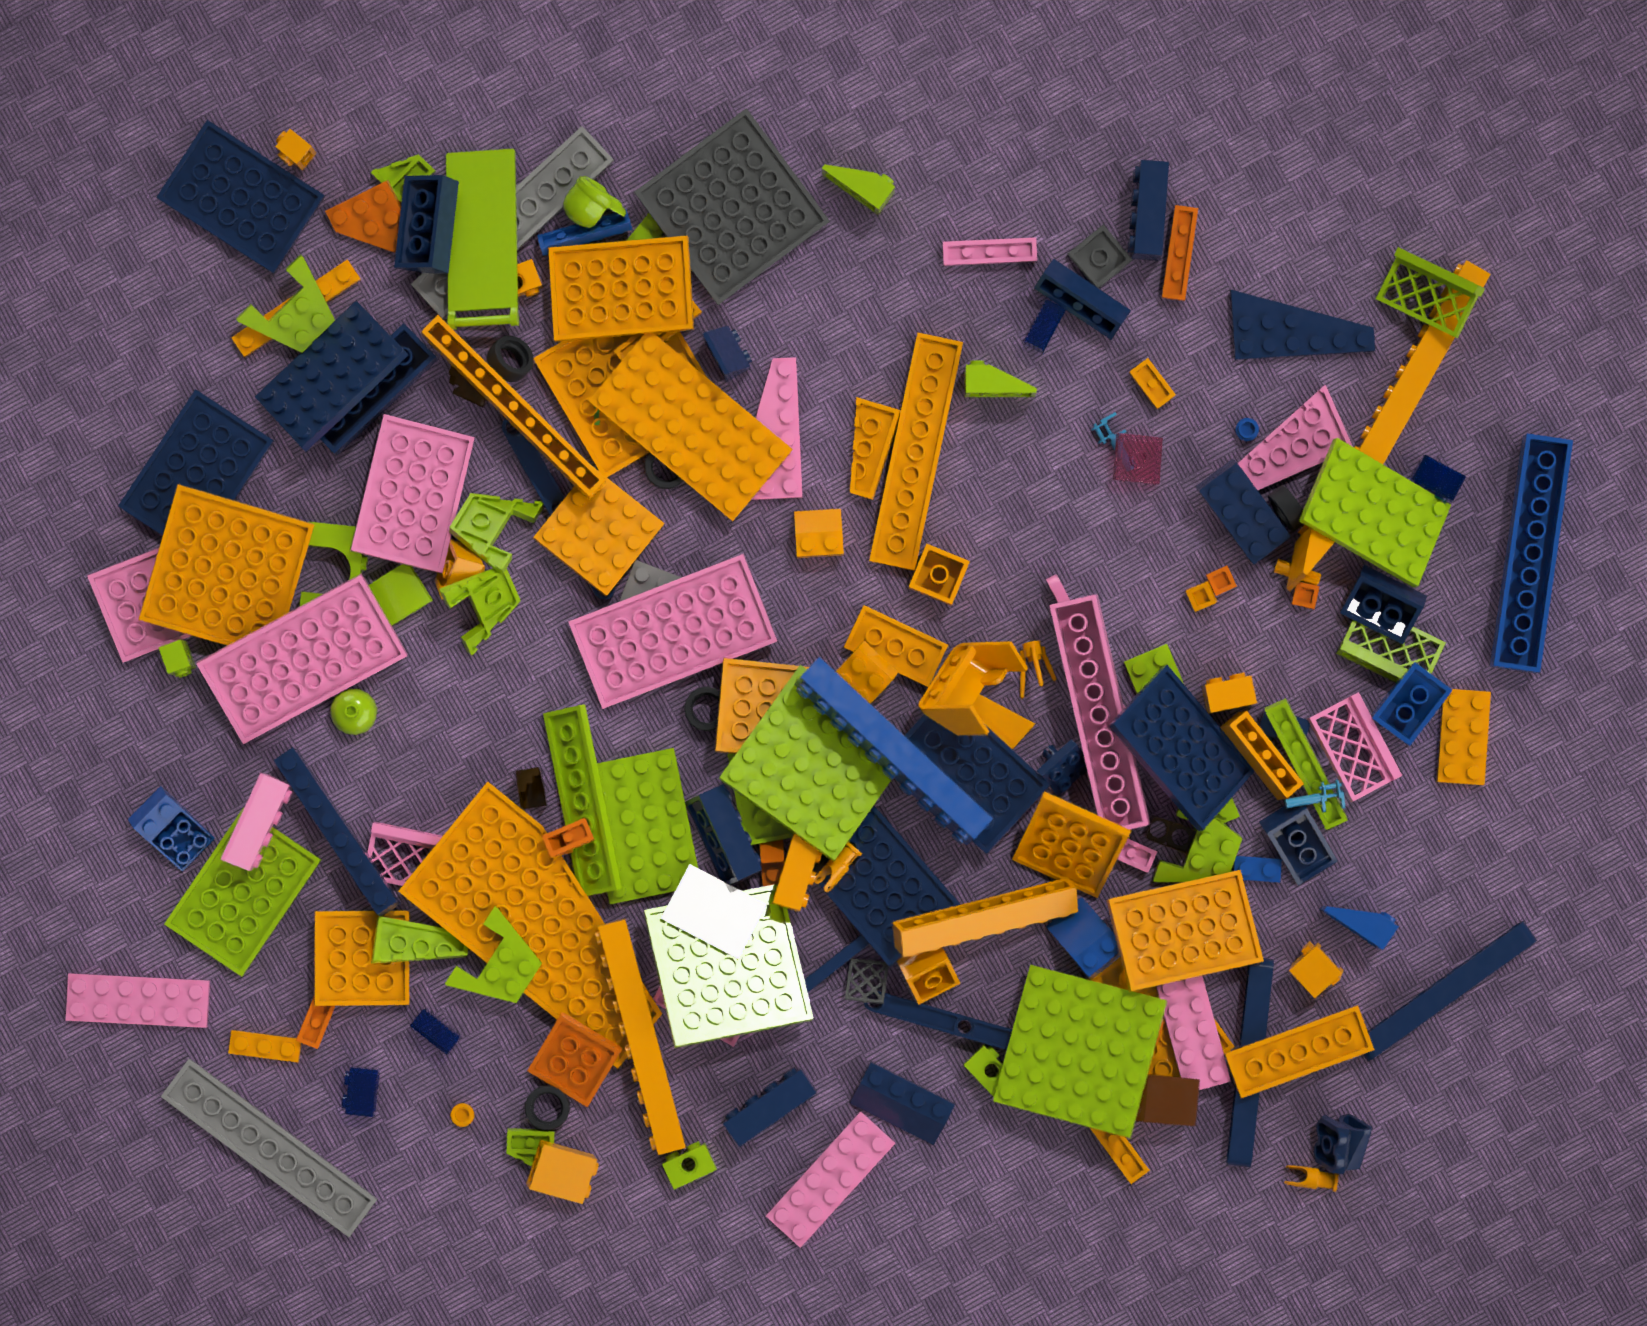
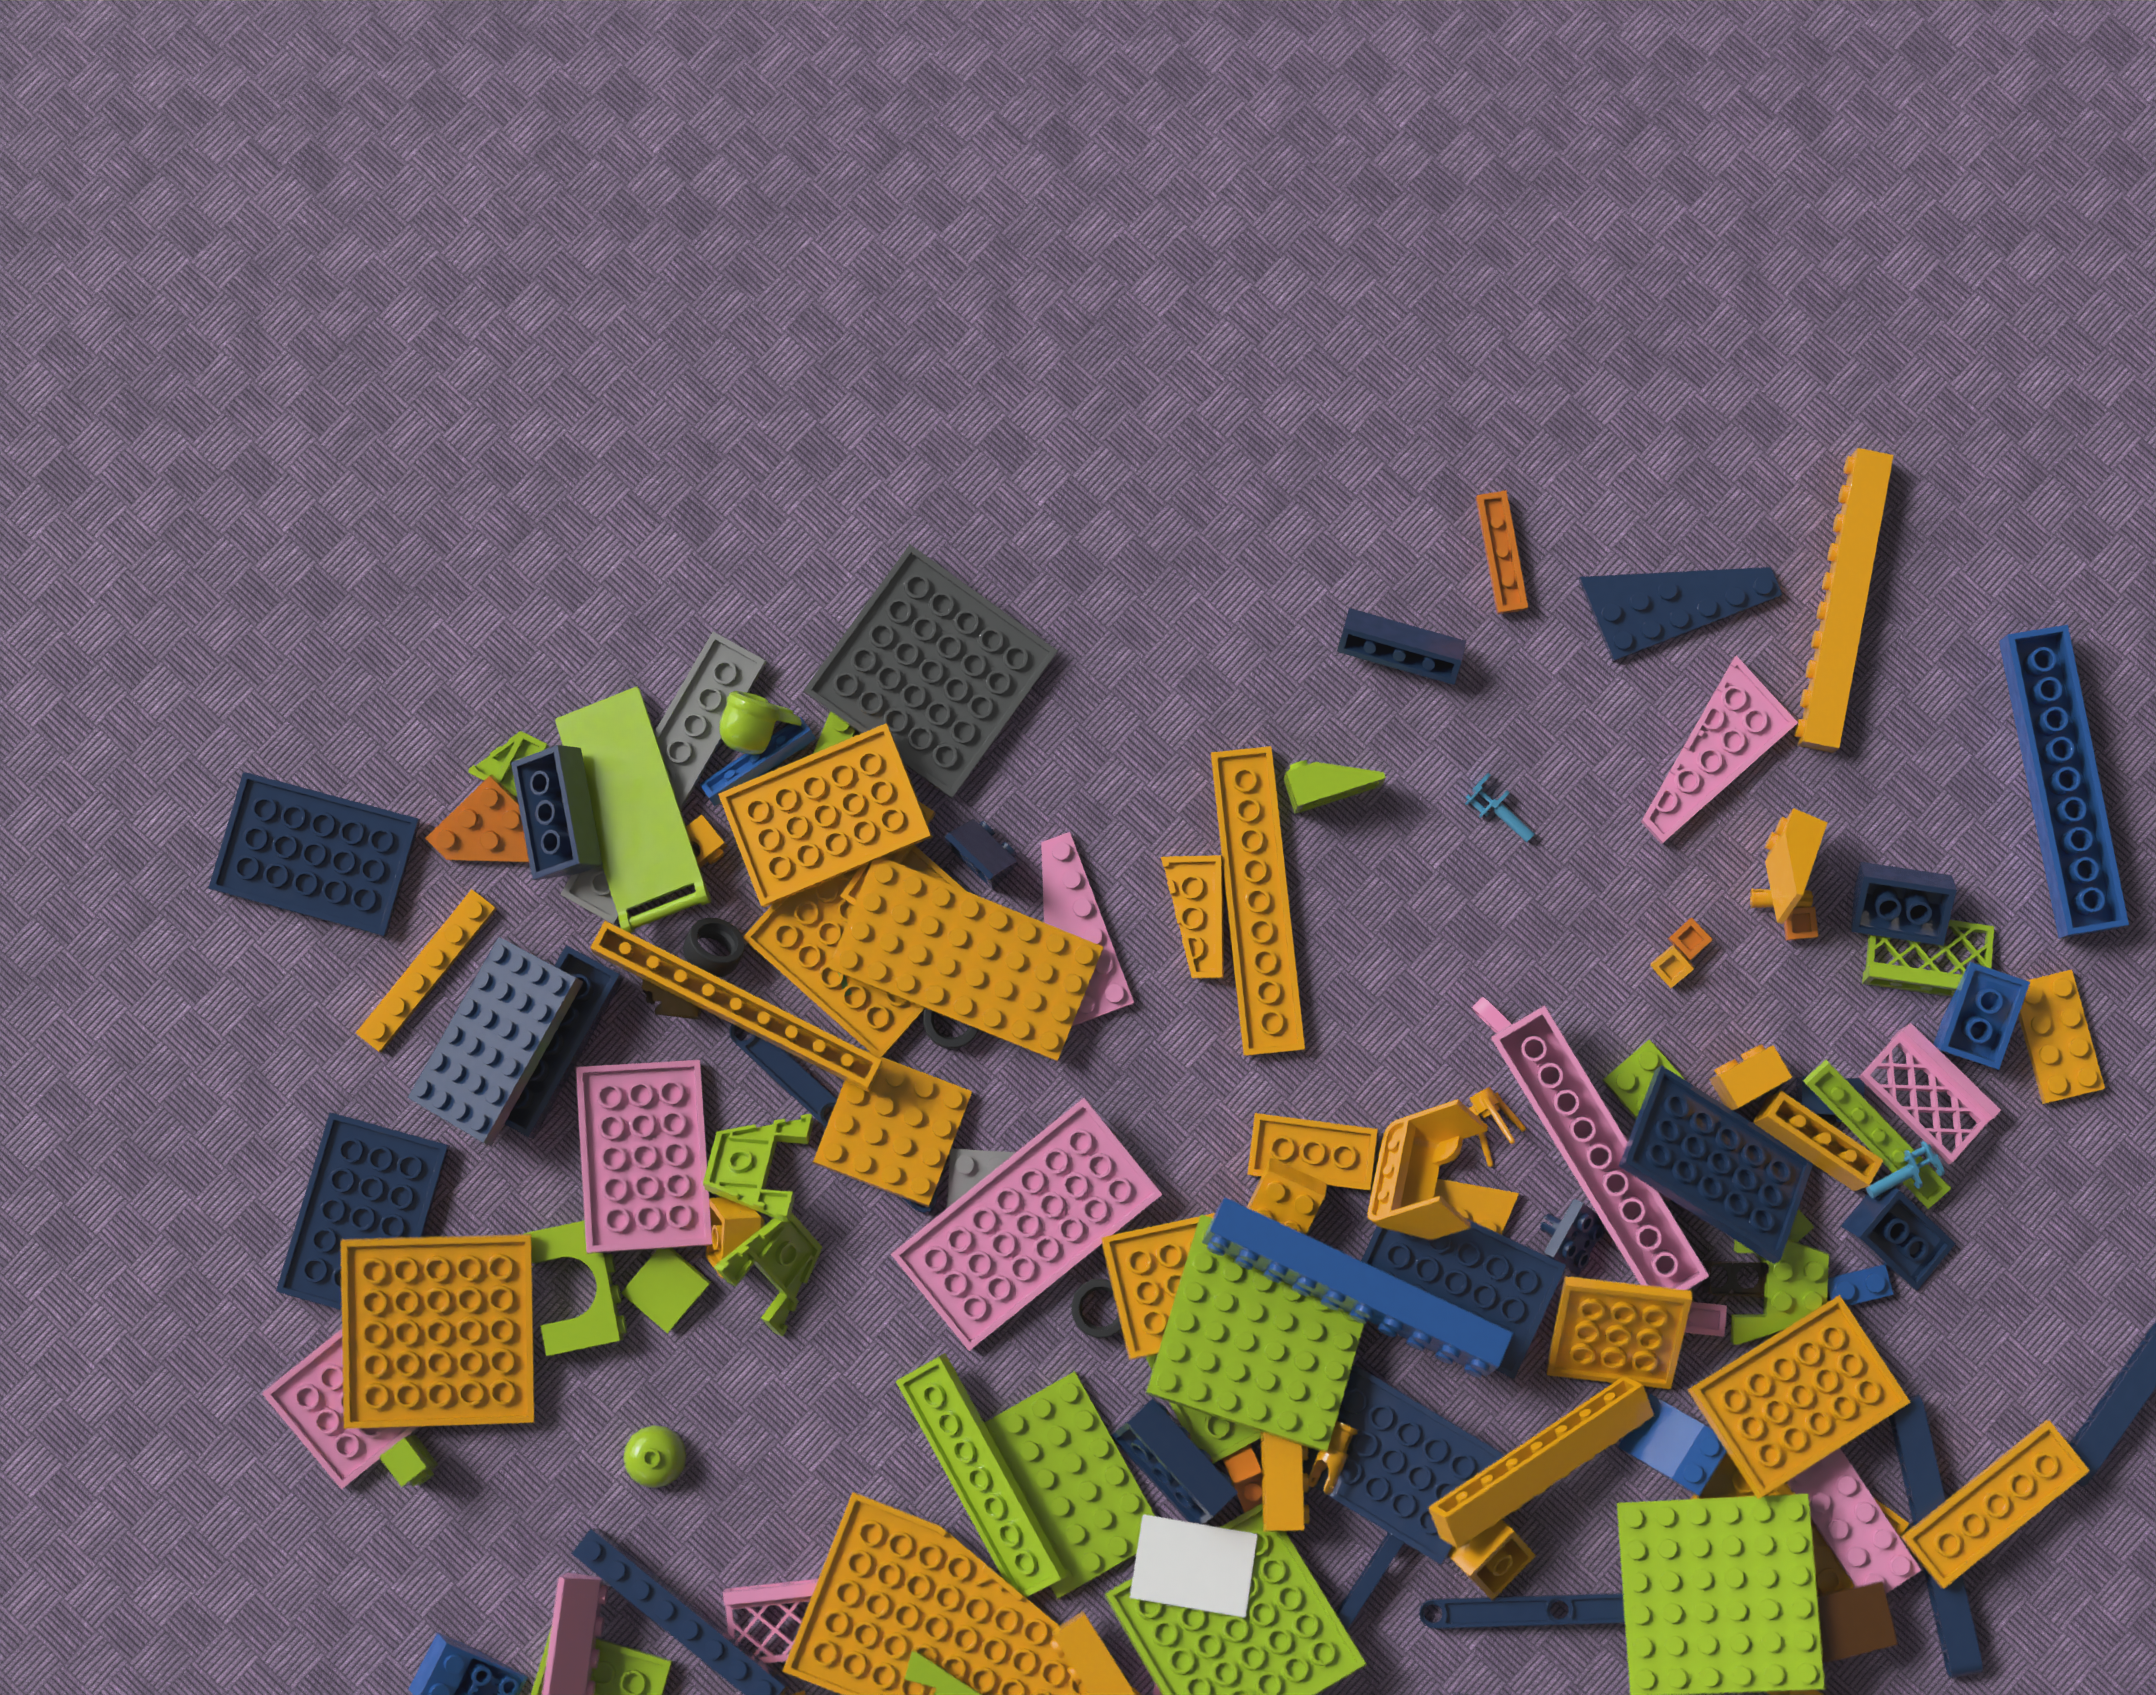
camera: 15 degrees left, 5 degrees down
(294, 149) = (363, 773): light orange brick -> none
(300, 318) = (434, 982): lime wing -> none
(302, 658) = (567, 1411): bright pink plate -> none
(531, 788) = (910, 1482): dark brown piece -> none
(568, 838) = (978, 1532): orange slope -> none
(818, 533) = (1169, 1041): light orange slope -> none
(864, 186) = (1085, 593): lime slope -> none
(869, 963) = (1420, 1612): dark grey window -> none
(939, 574) = (1337, 1044): light orange brick -> none
(977, 1063) = (1591, 1654): lime brick -> none
(989, 251) = (1267, 625): bright pink plate -> none
(1044, 326) = (1365, 694): clear blue brick -> none
(1100, 257) = (1404, 588): dark grey tile -> none
(1137, 458) = (1535, 821): clear pink tile -> none
(1150, 210) = (1448, 511): dark blue brick -> none
(1152, 383) = (1522, 722): light orange plate -> none
(1243, 511) = (1690, 844): dark blue brick -> none
(1247, 429) = (1657, 742): blue plate -> none
(1286, 507) = (1743, 821): black tyre -> none
(1315, 969) = (1978, 1391): light orange plate -> none
(1315, 1178) = (2069, 1659): light orange piece -> none
(1341, 1143) = (2087, 1603): dark blue piece -> none
(1372, 927) = (2032, 1314): blue slope -> none
(1375, 512) = (1855, 792): lime plate -> none
(1438, 274) = (1832, 475): lime fence -> none
(1438, 478) = (1914, 727): clear blue brick -> none

